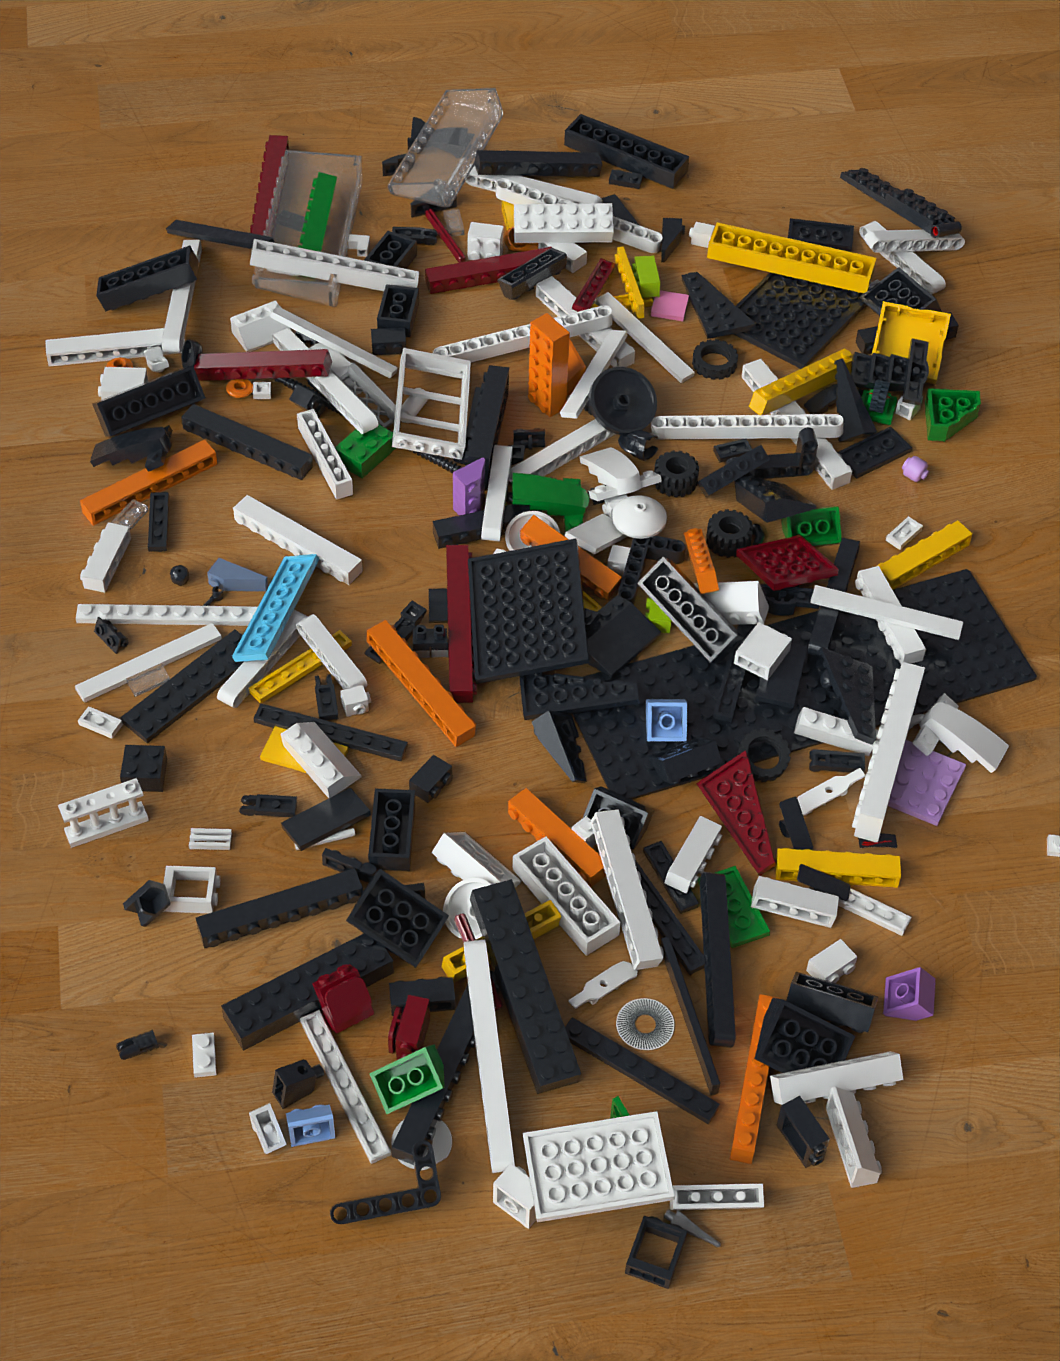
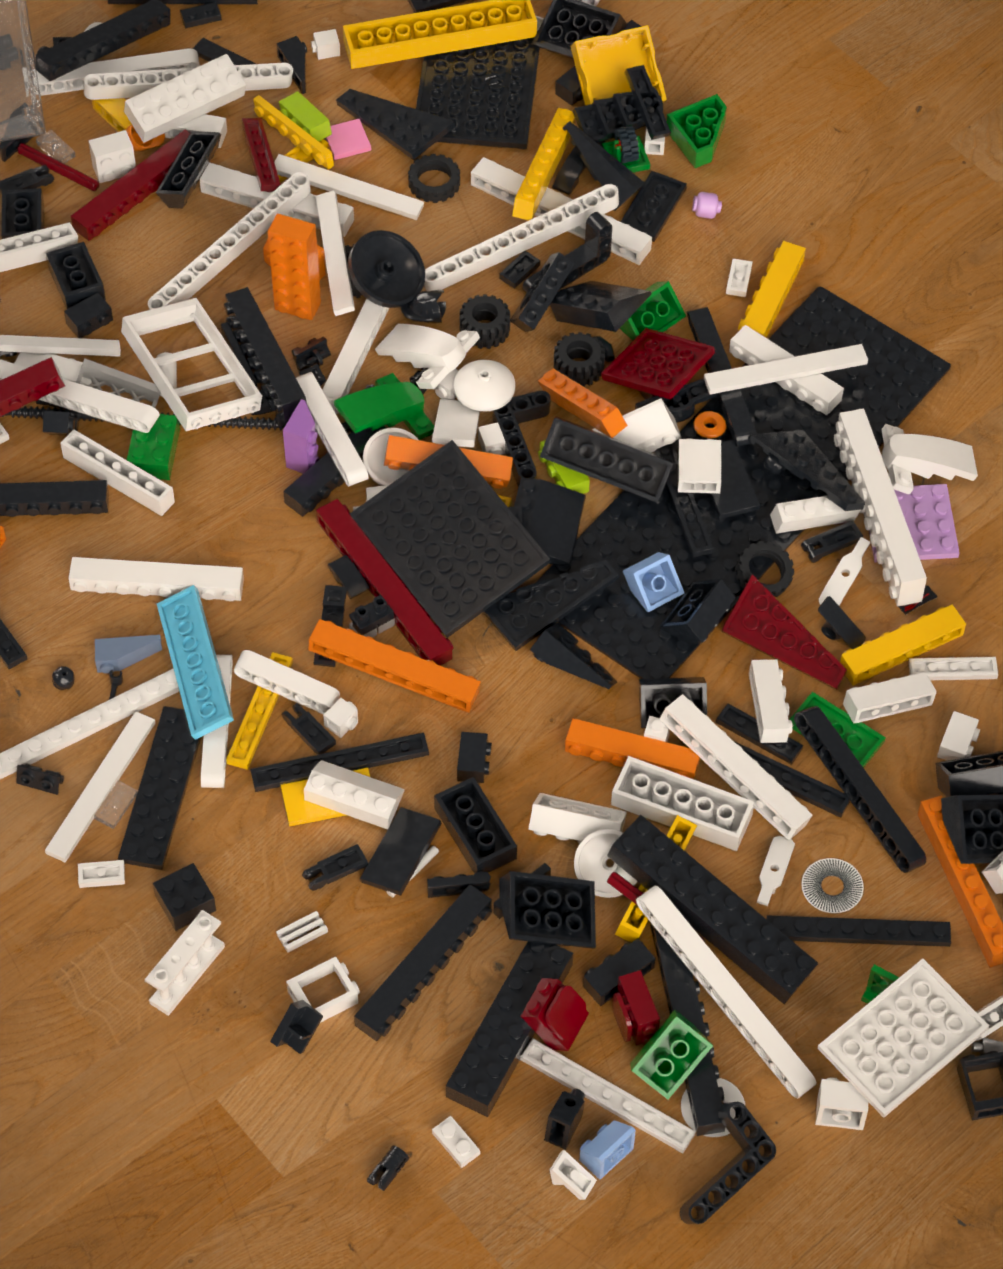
camera: 30 degrees left, 5 degrees up
(690, 1017) = (871, 857): black tile -> none
(798, 621) = (712, 418): none -> orange piece
(823, 883) = (902, 665): black piece -> none

